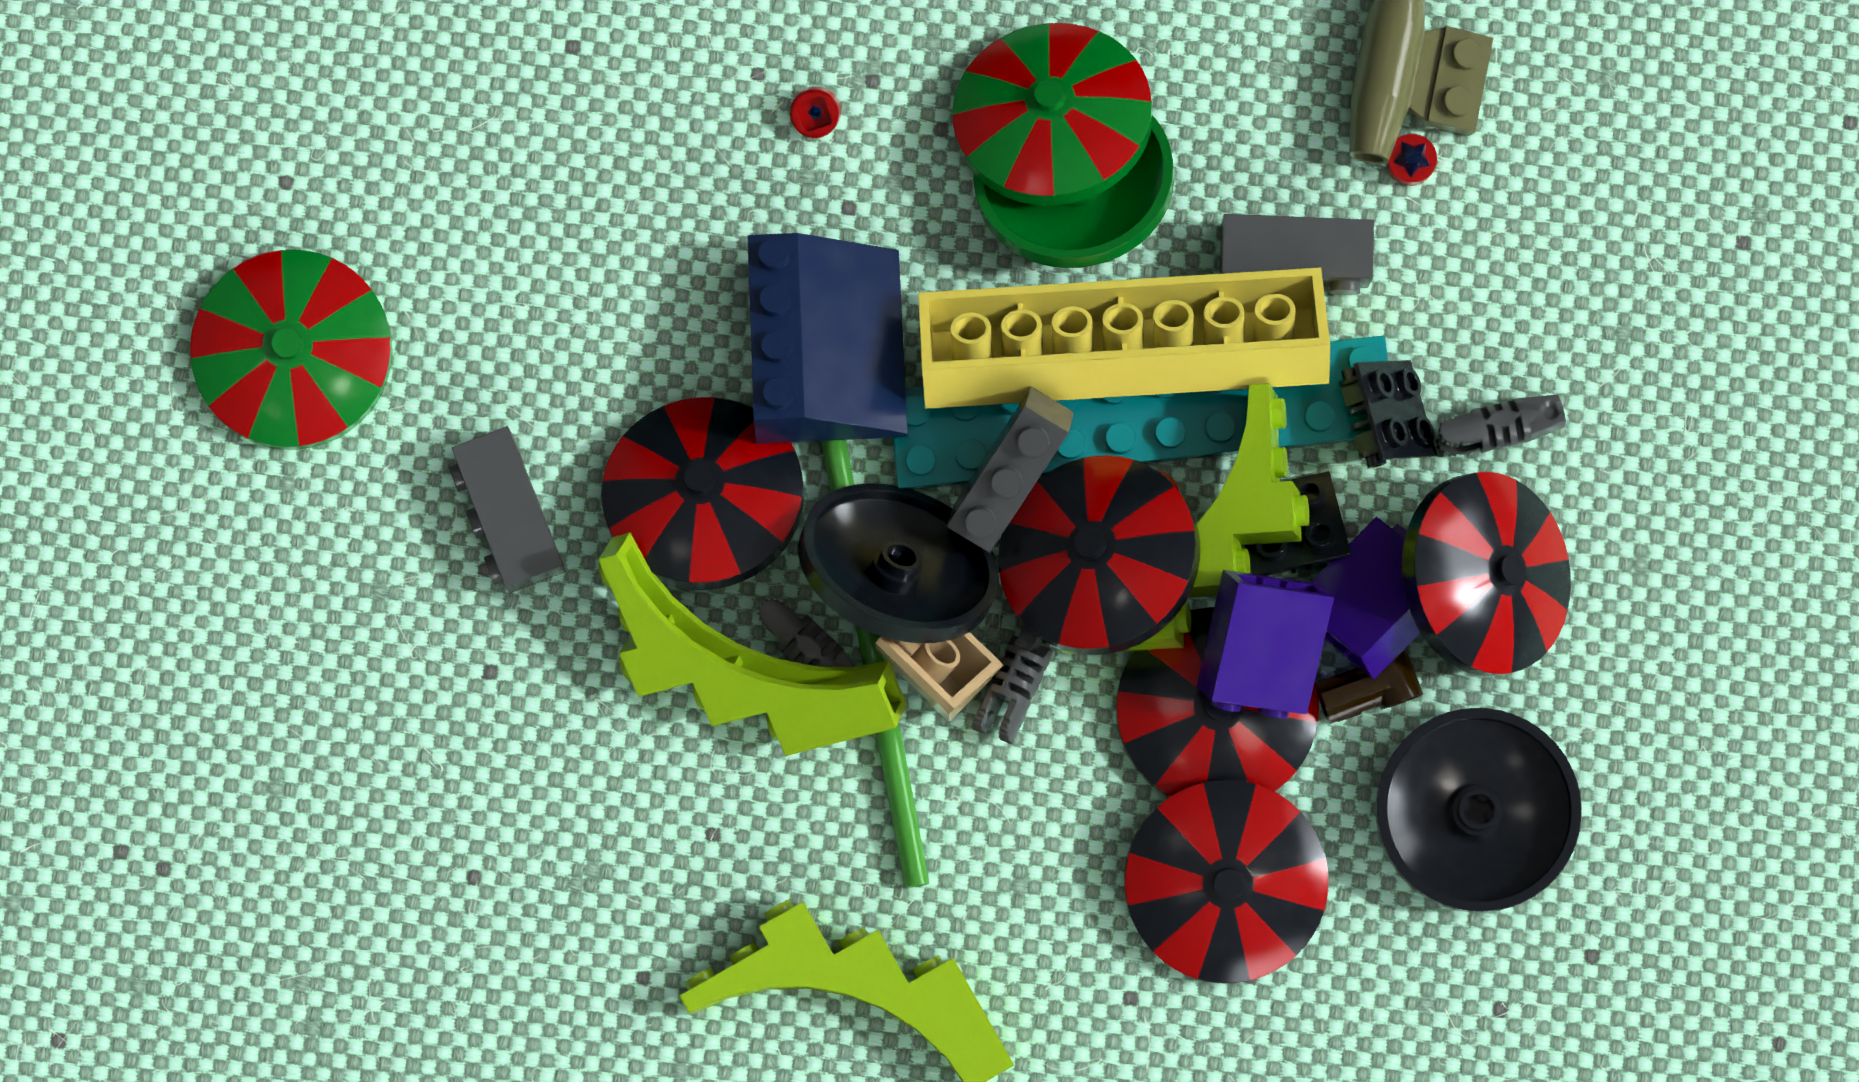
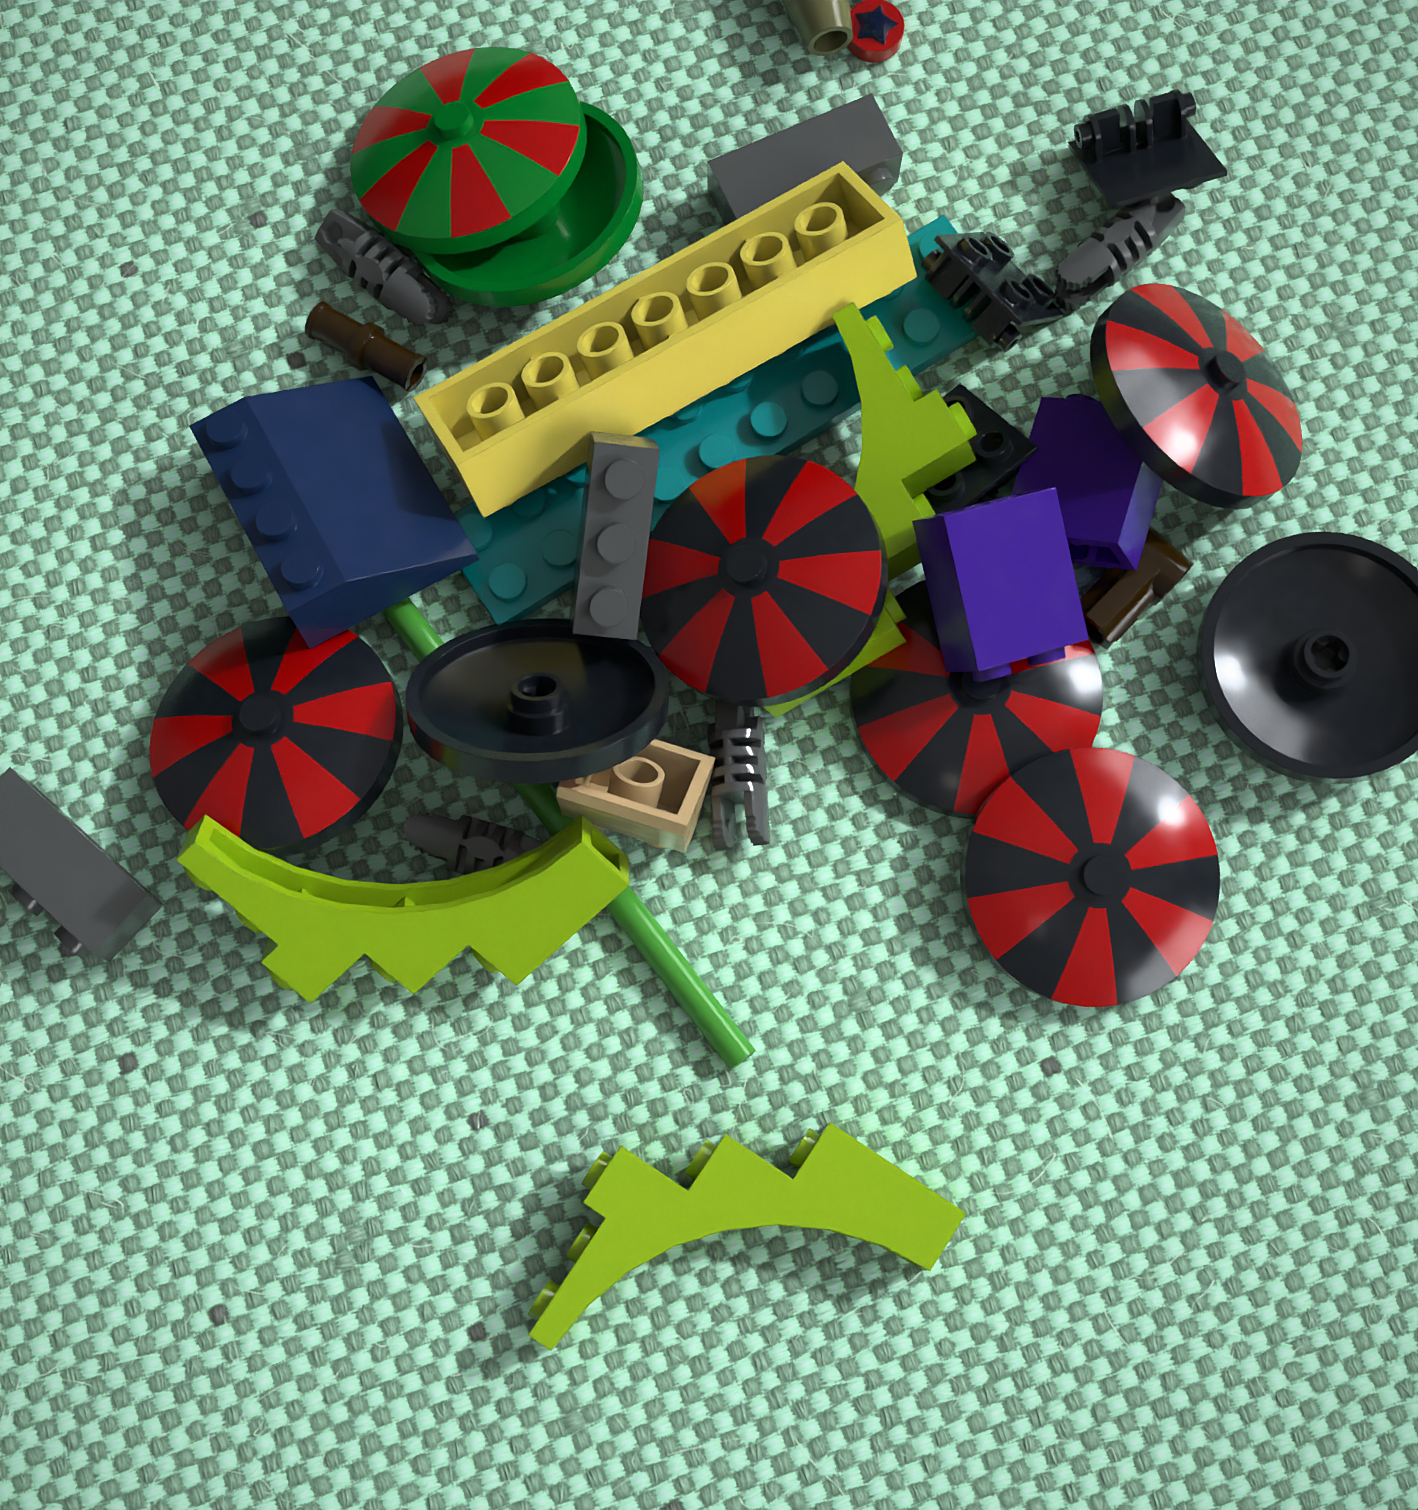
camera: 25 degrees left, 5 degrees down
(815, 112) = (208, 273): red tile -> none
(904, 227) = (366, 346): none -> dark brown pin
(945, 173) = (383, 269): none -> dark grey hinge
(1558, 365) = (1145, 152): none -> black hinge

